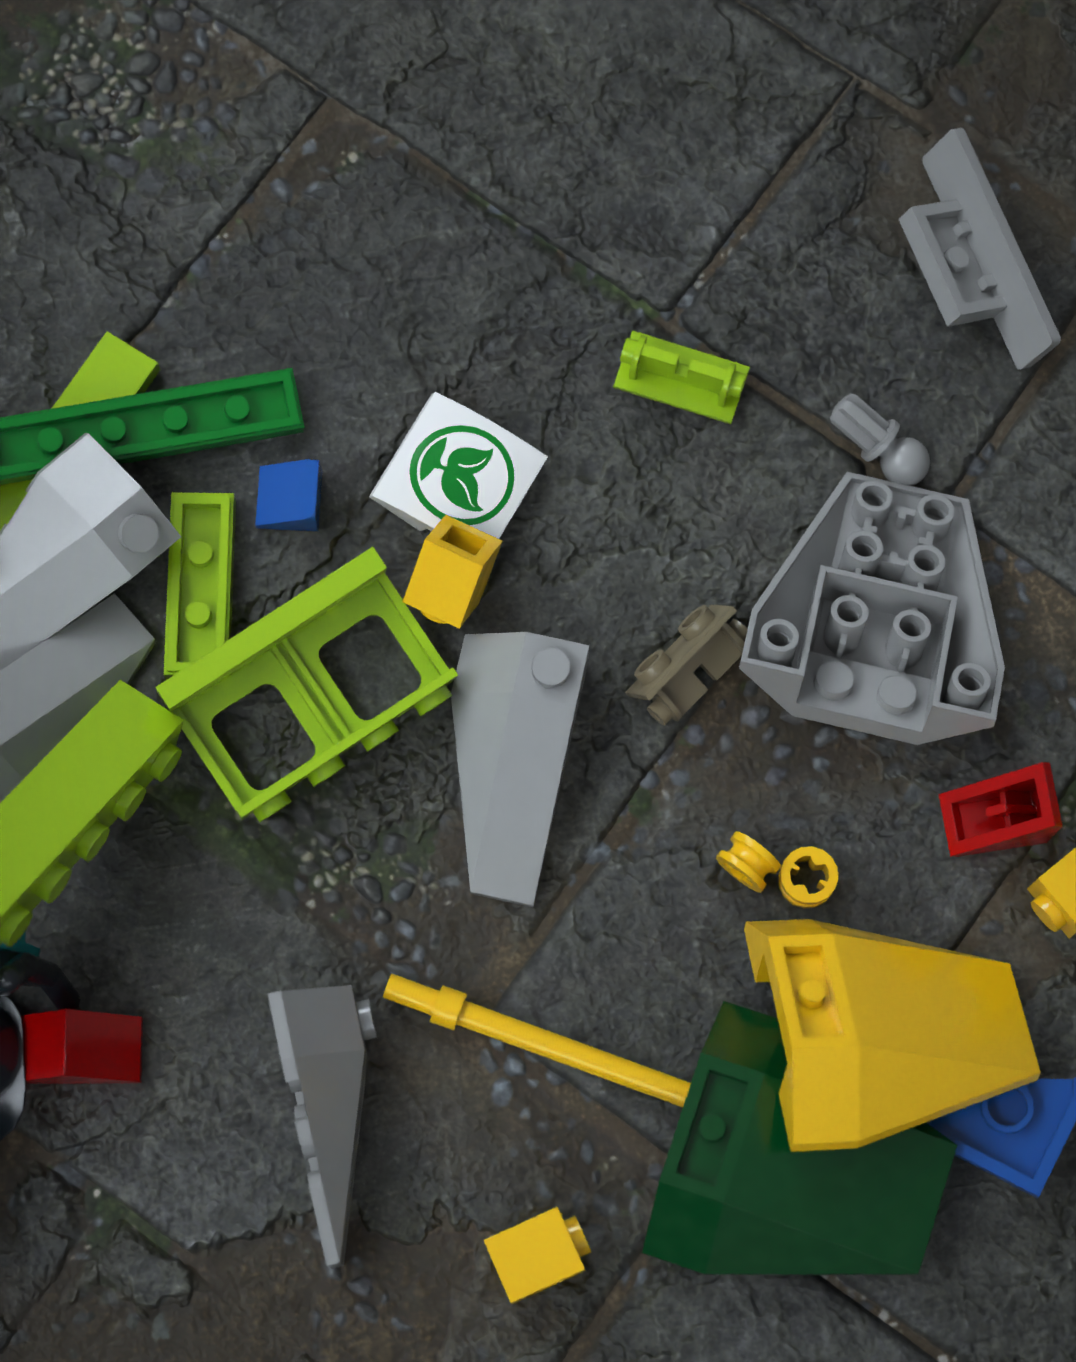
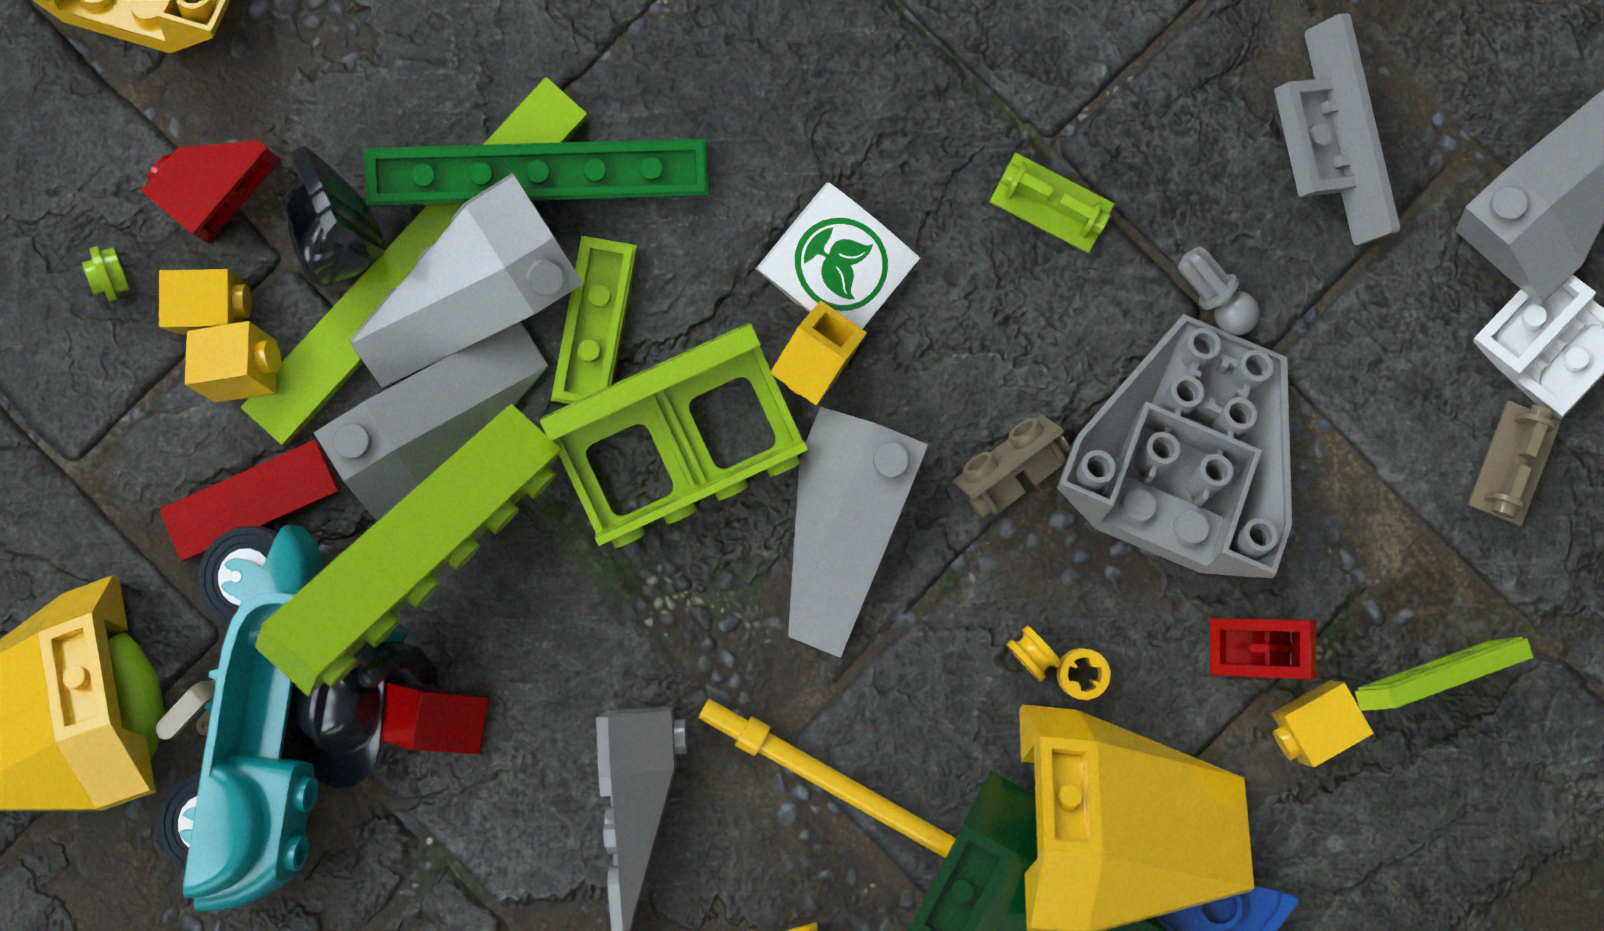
camera: 10 degrees right, 10 degrees up
(289, 496) = (685, 255): blue slope -> none

